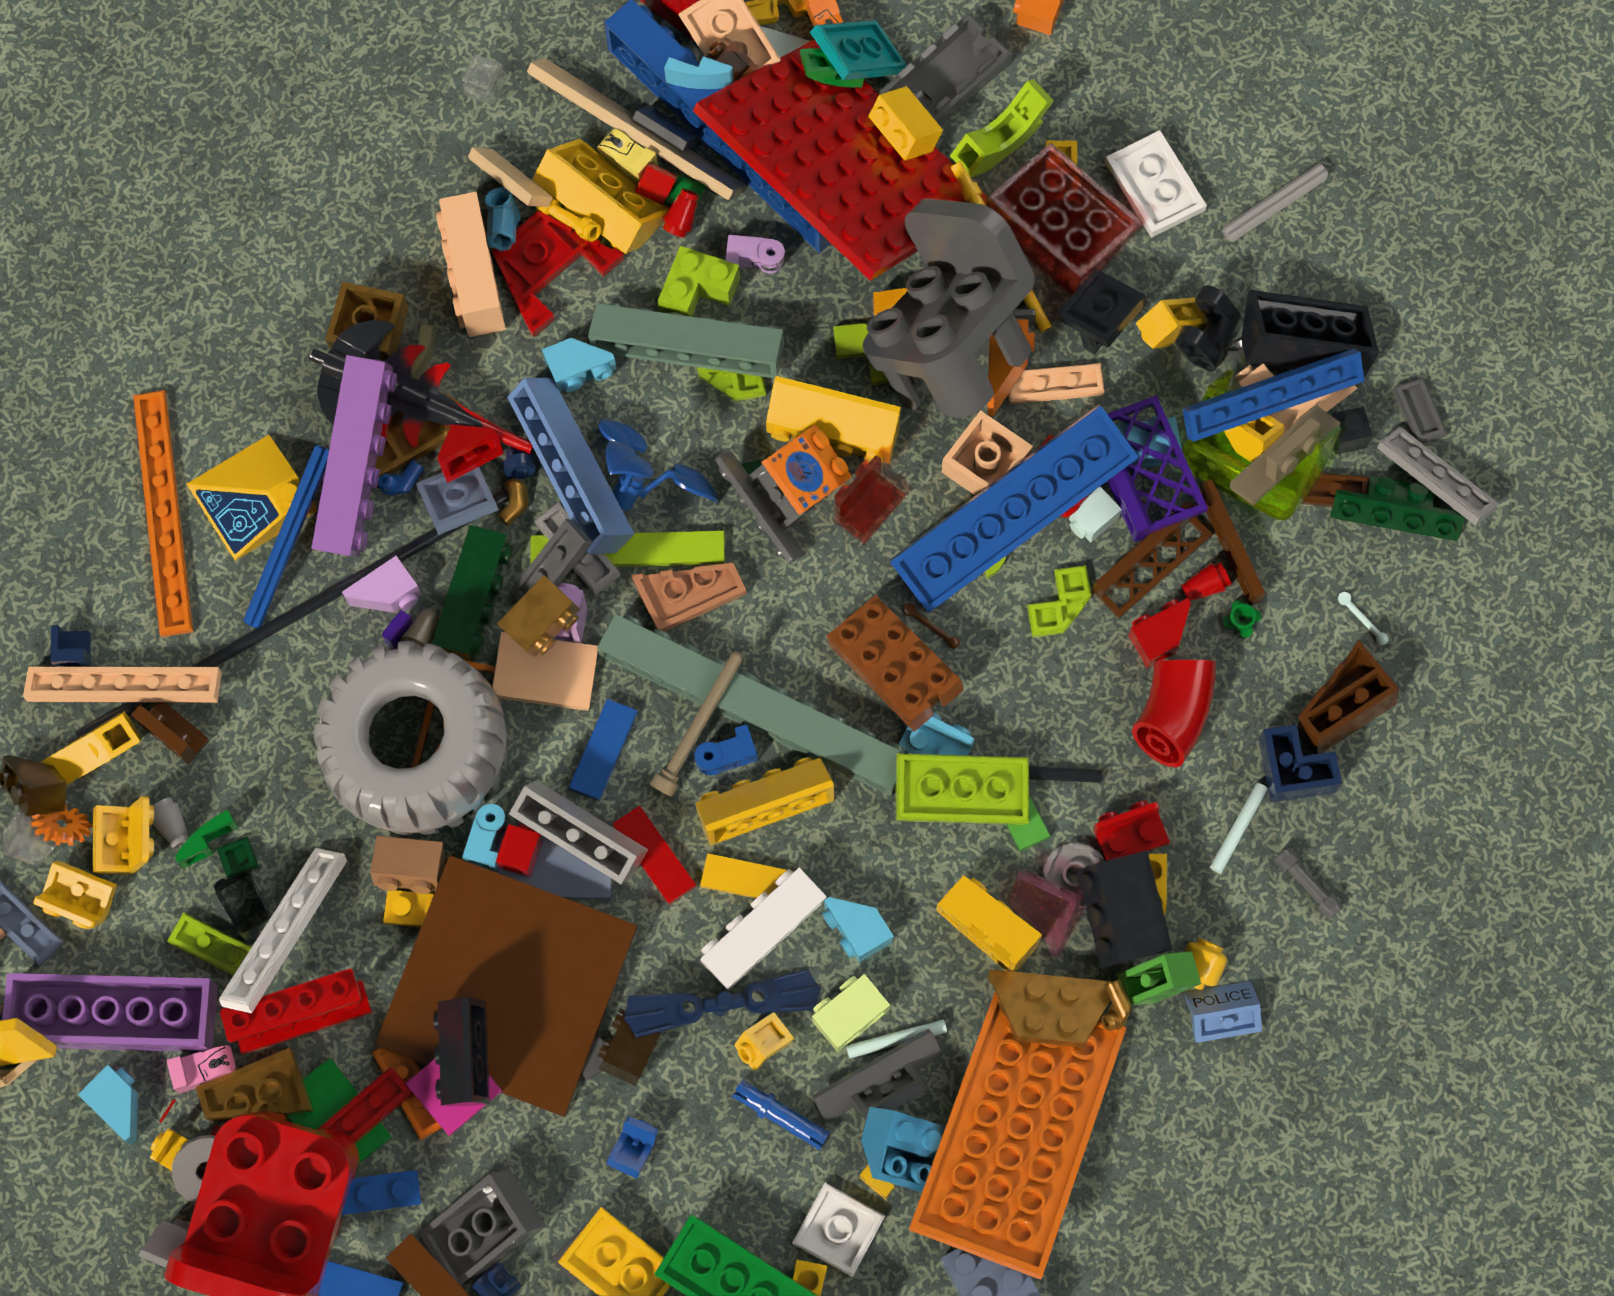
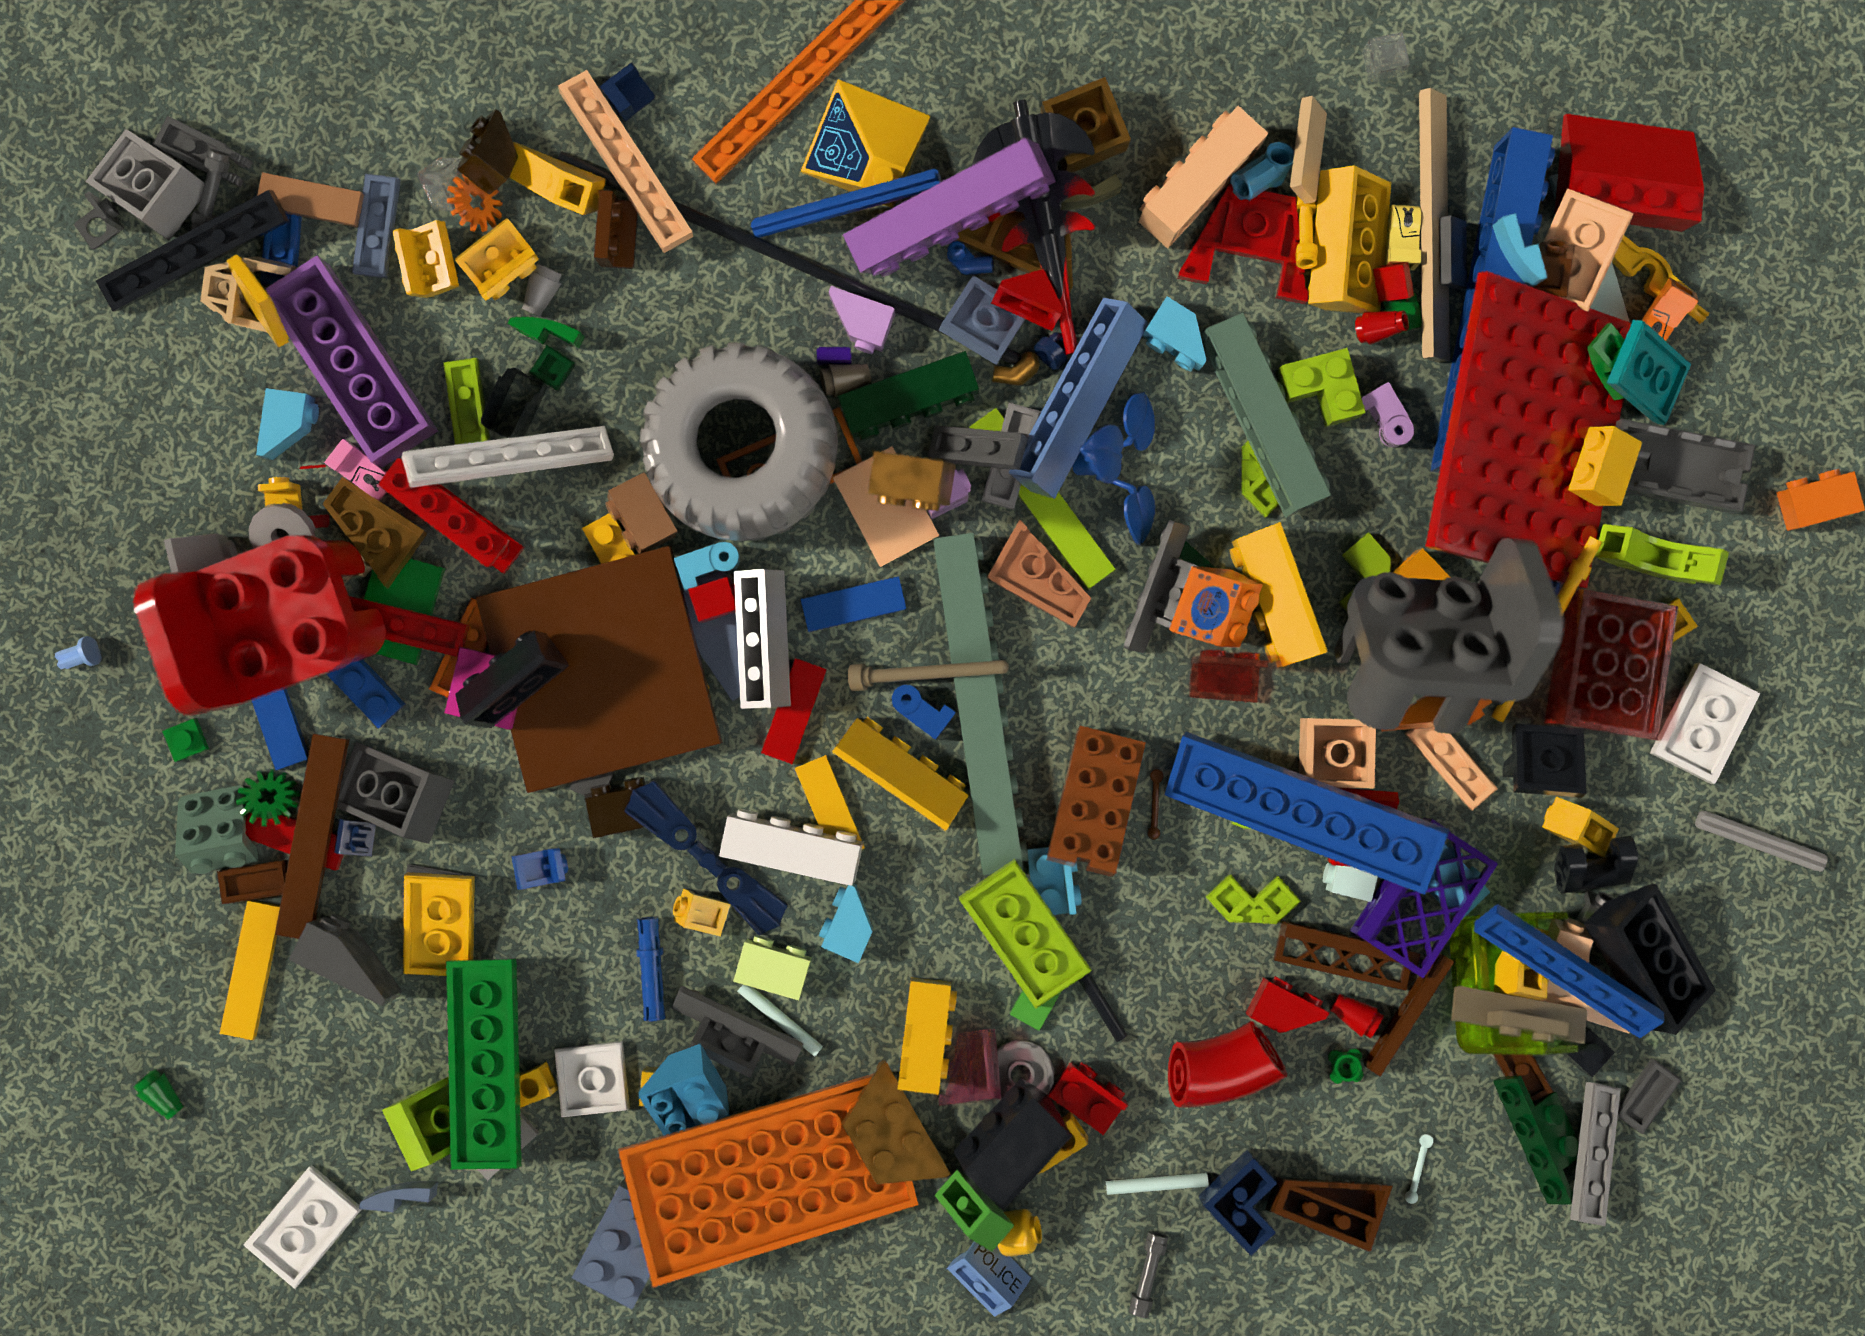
camera: 55 degrees right, 15 degrees up
(1120, 1006) = (927, 1191): pearl gold arm -> none

